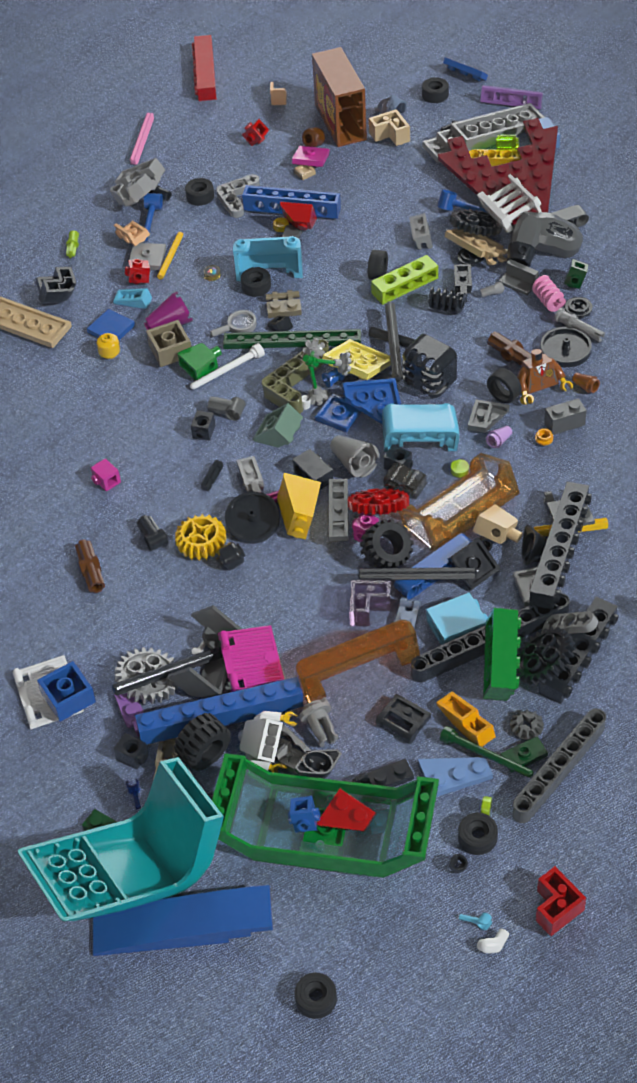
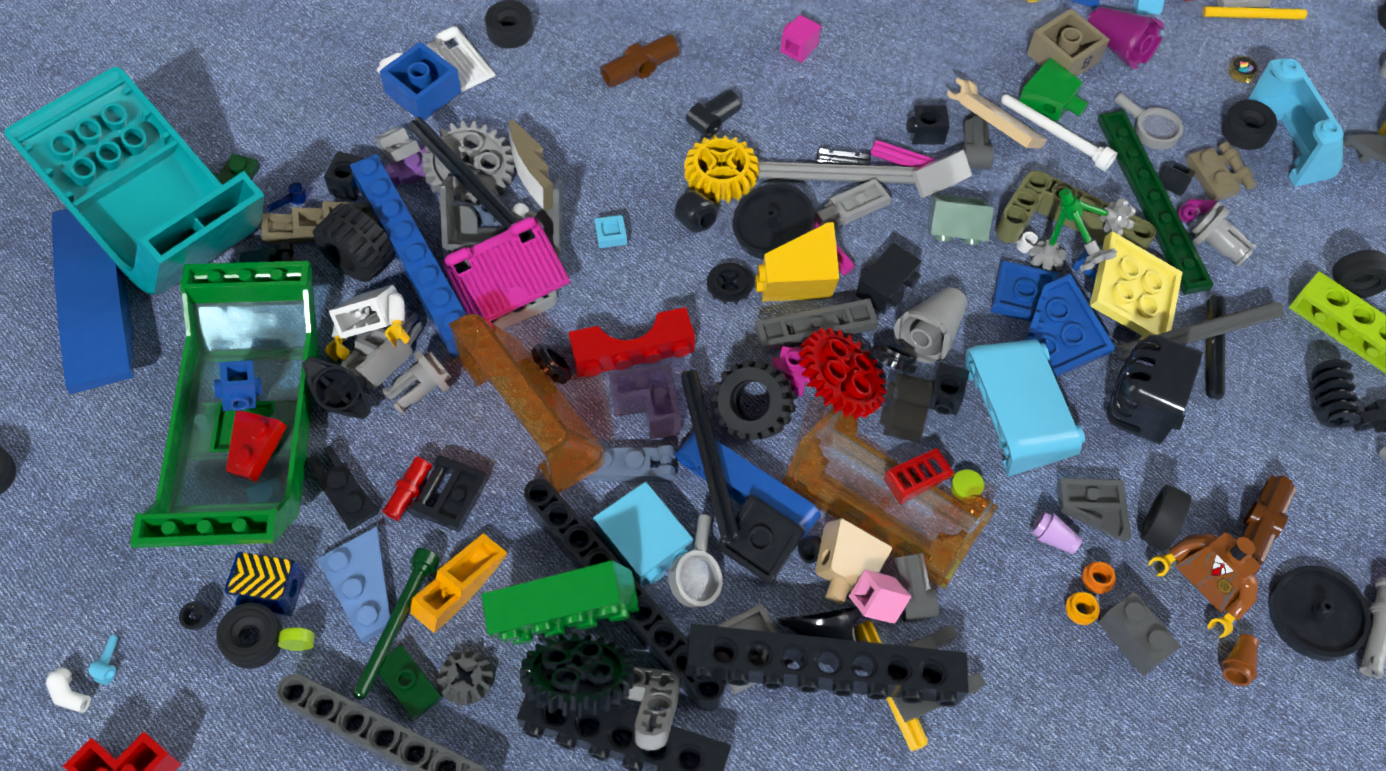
camera: 70 degrees right, 10 degrees up
(20, 628) = (509, 36): none -> black tyre
(111, 719) = (397, 144): none -> light grey slope
(166, 636) = (530, 165): none -> dark tan slope
(192, 399) = (996, 116): none -> tan tile
(223, 477) = (835, 172): none -> light grey axle
(225, 441) = (898, 155): none -> dark pink axle
(230, 604) = (610, 231): none -> medium azure plate
(245, 428) = (942, 173): none -> light grey slope
(291, 544) = (730, 273): none -> black gear
(305, 321) = (1194, 207): none -> magenta arm
(321, 623) = (598, 352): none -> red arch
(324, 646) = (551, 363): none -> black gear
(328, 315) = (1222, 235): none -> light grey piece
(371, 478) = (894, 358): none -> black gear
(394, 739) = (407, 488): none -> red pin
(446, 819) = (265, 581): none -> piece
(453, 496) = (904, 494): none -> red slope
(486, 597) = (696, 574): none -> piece
(524, 502) = (914, 578): none -> dark grey piece
(525, 513) = (879, 596): none -> bright pink brick
(528, 425) = (1103, 570): none -> orange plate

